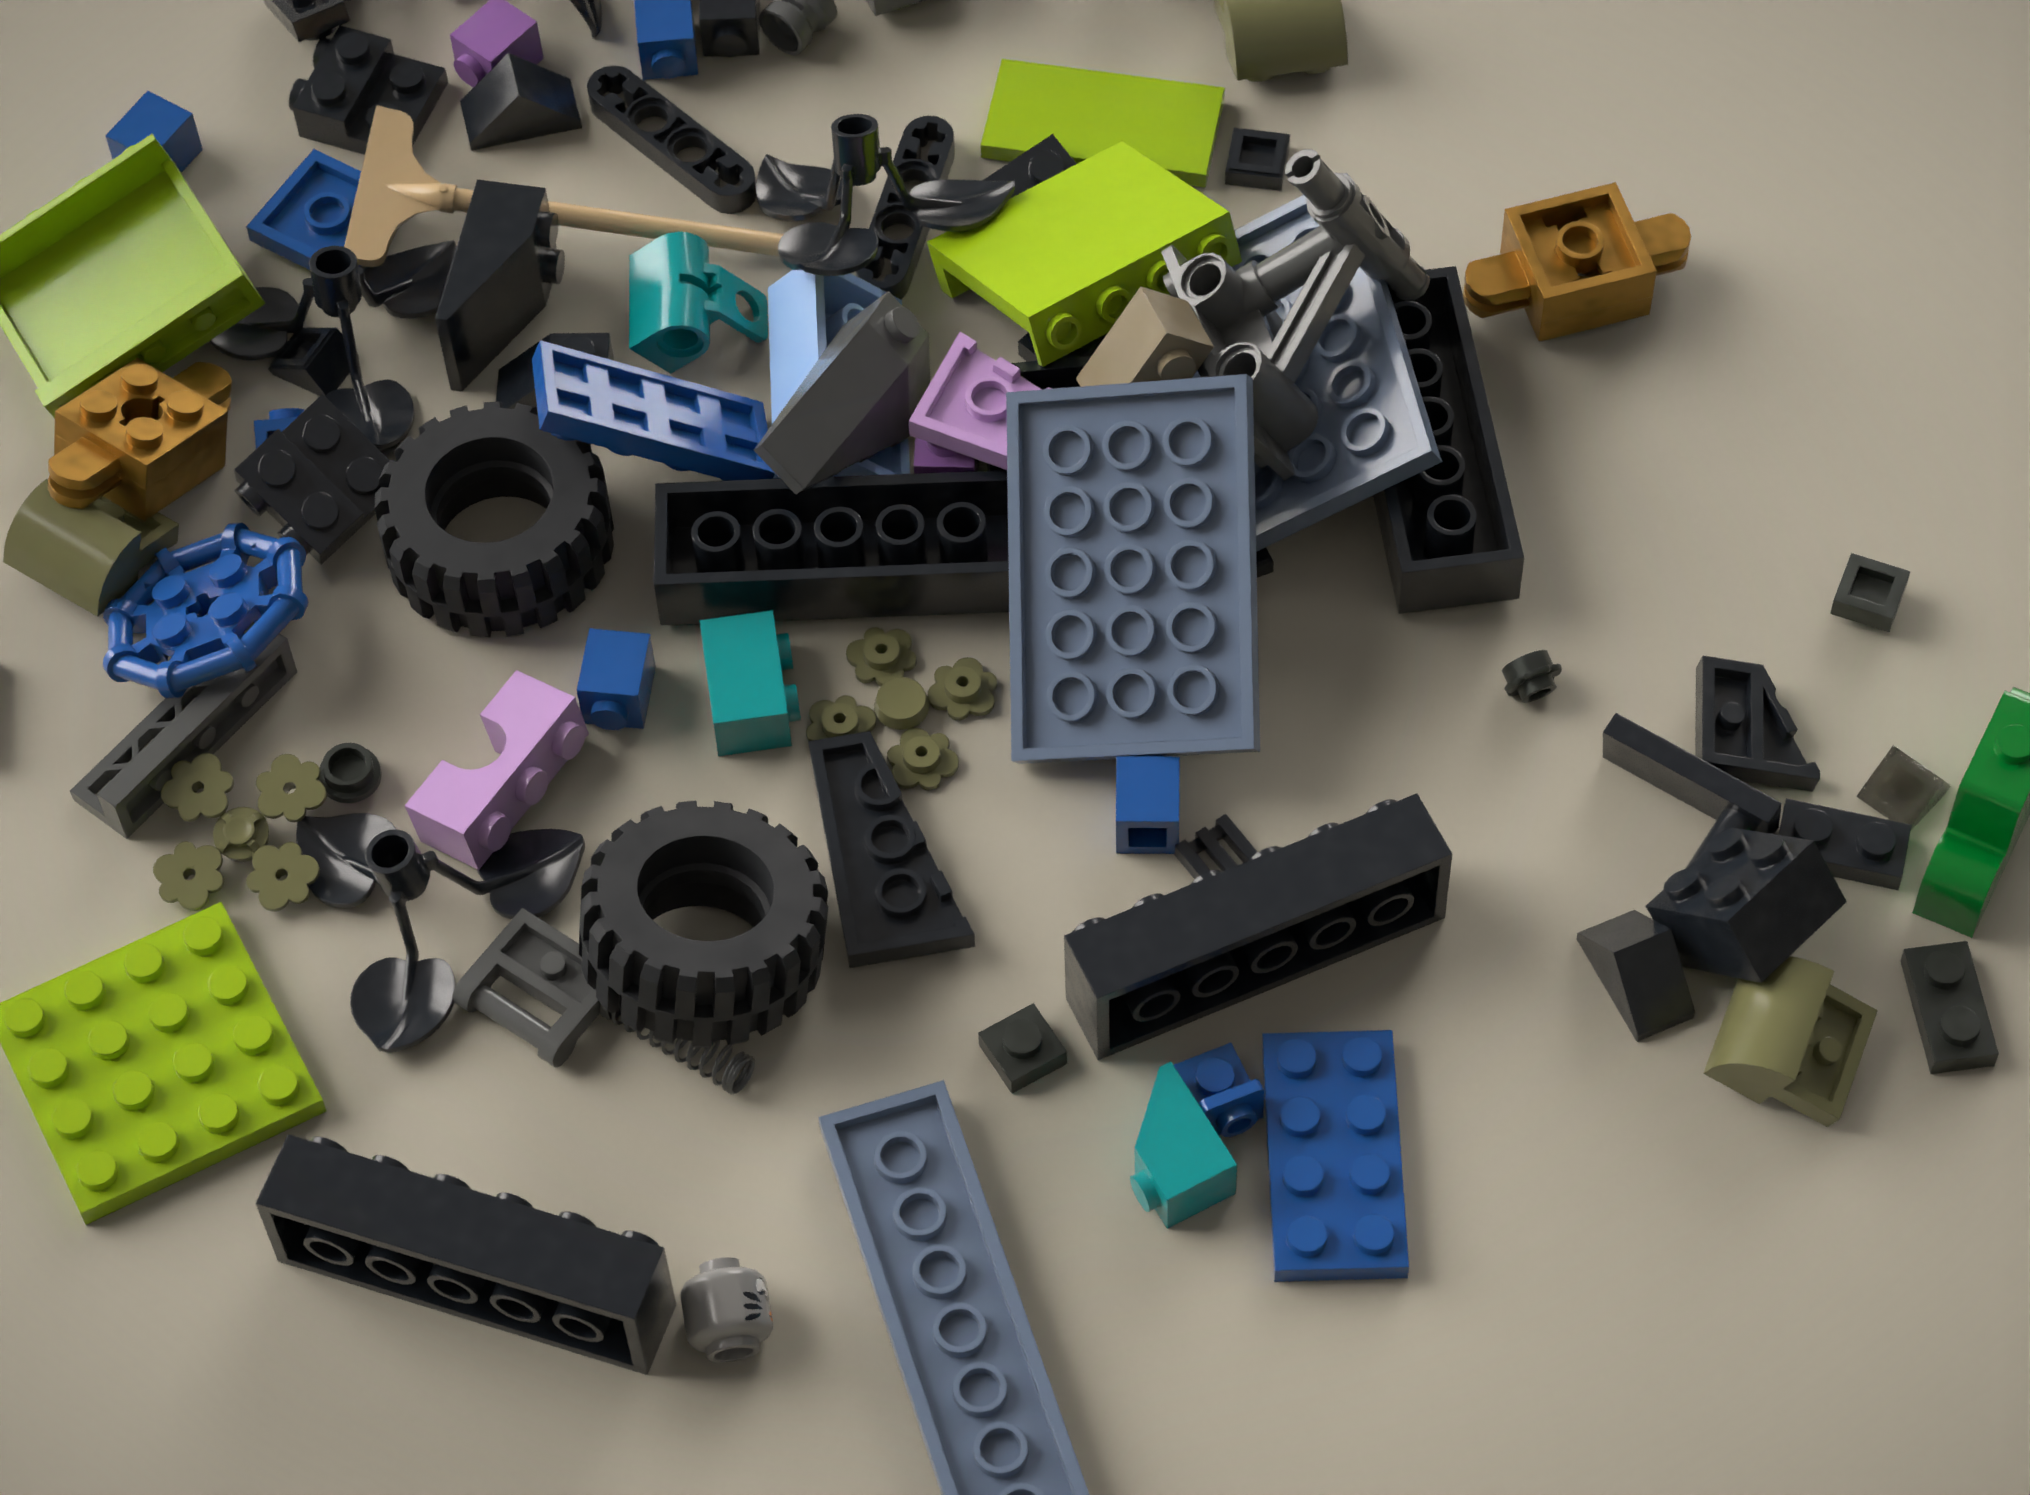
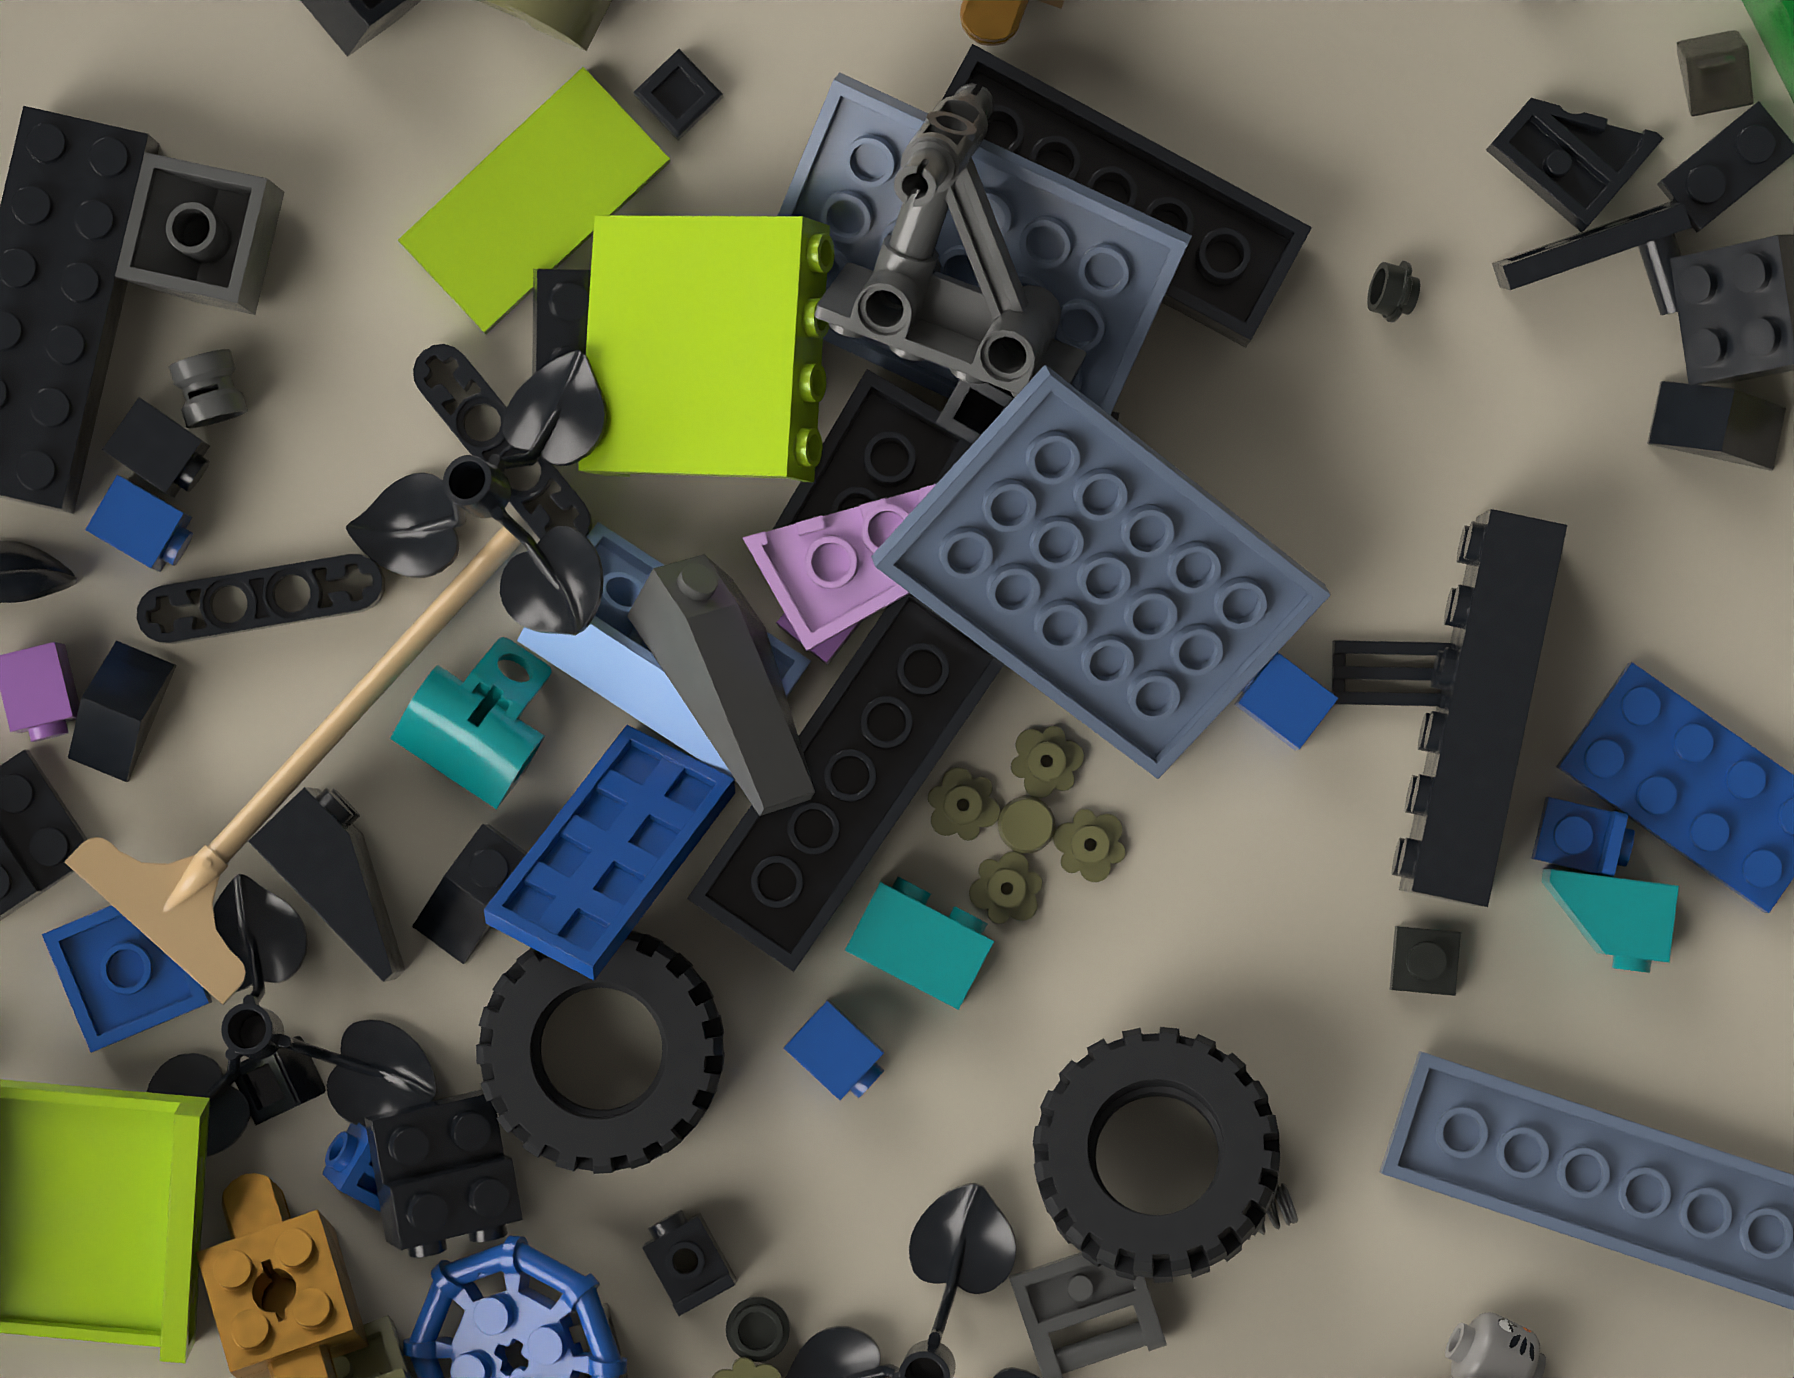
camera: 55 degrees left, 30 degrees up
(369, 690) = (710, 1276): none -> black brick
(475, 809) = (846, 1155): lavender arch -> none
(882, 873) = (1177, 955): black wing -> none
(1149, 342) = (919, 416): dark tan brick -> none

